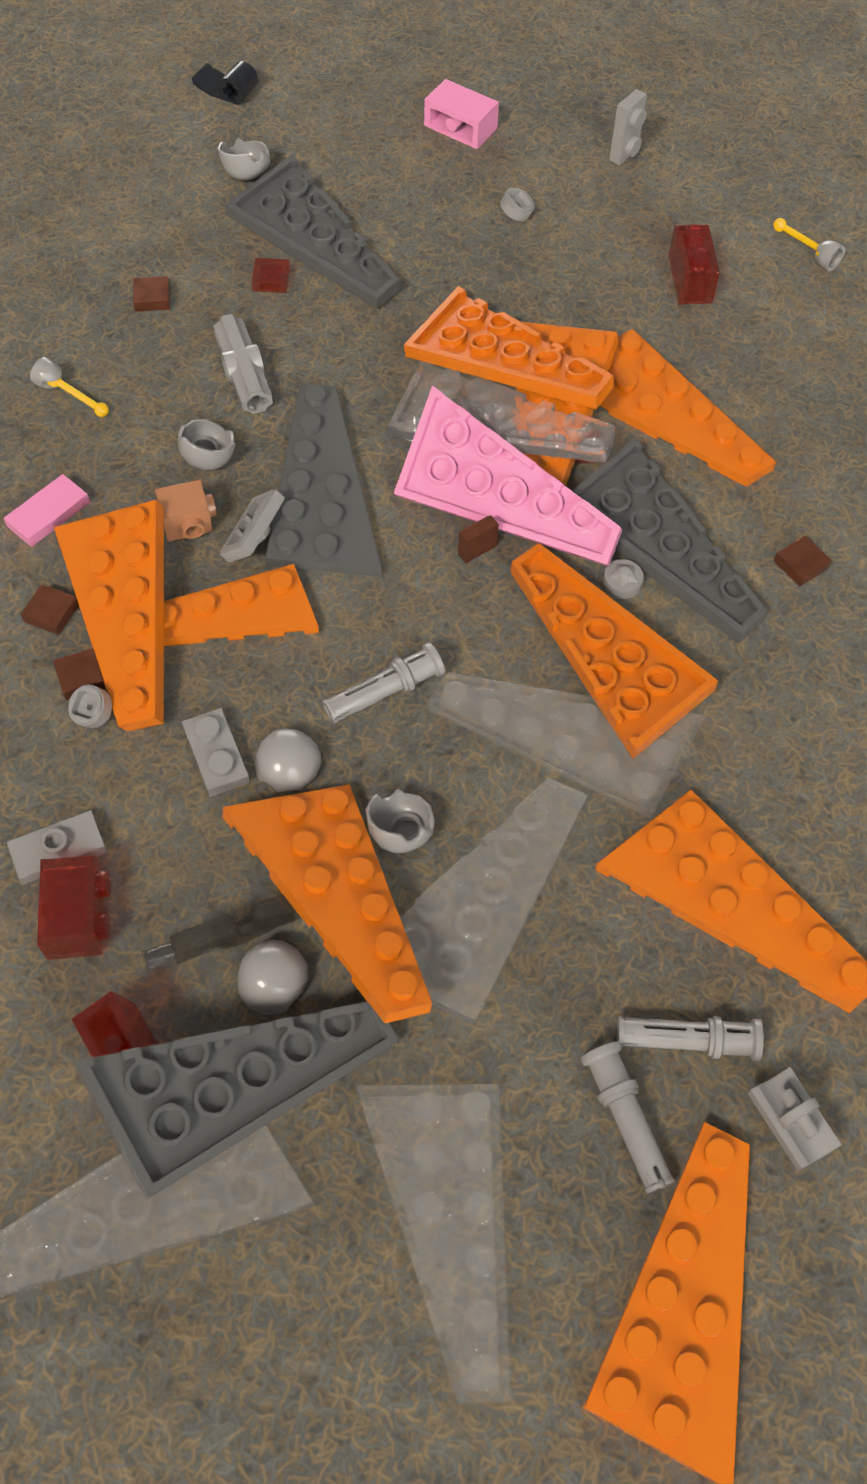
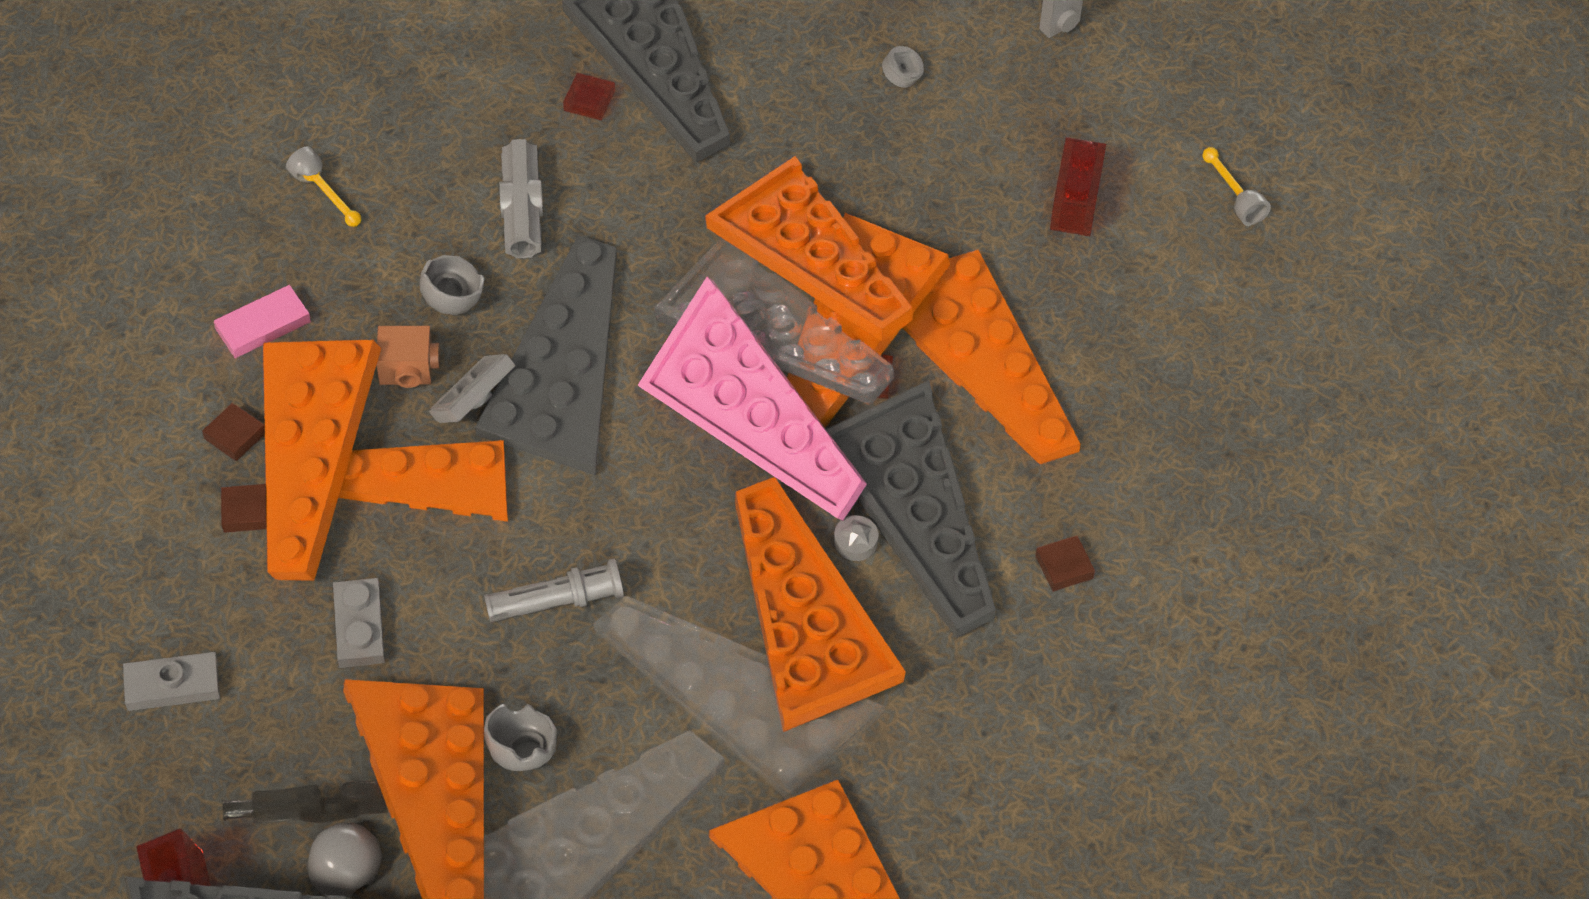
camera: 15 degrees right, 5 degrees down
(72, 907) = (169, 743): clear red brick -> none
(90, 706) = (245, 545): light grey tile -> none
(151, 293) = (448, 91): copper tile -> none
(287, 760) = (429, 648): light grey hair -> none
(477, 539) = (709, 457): copper tile -> none

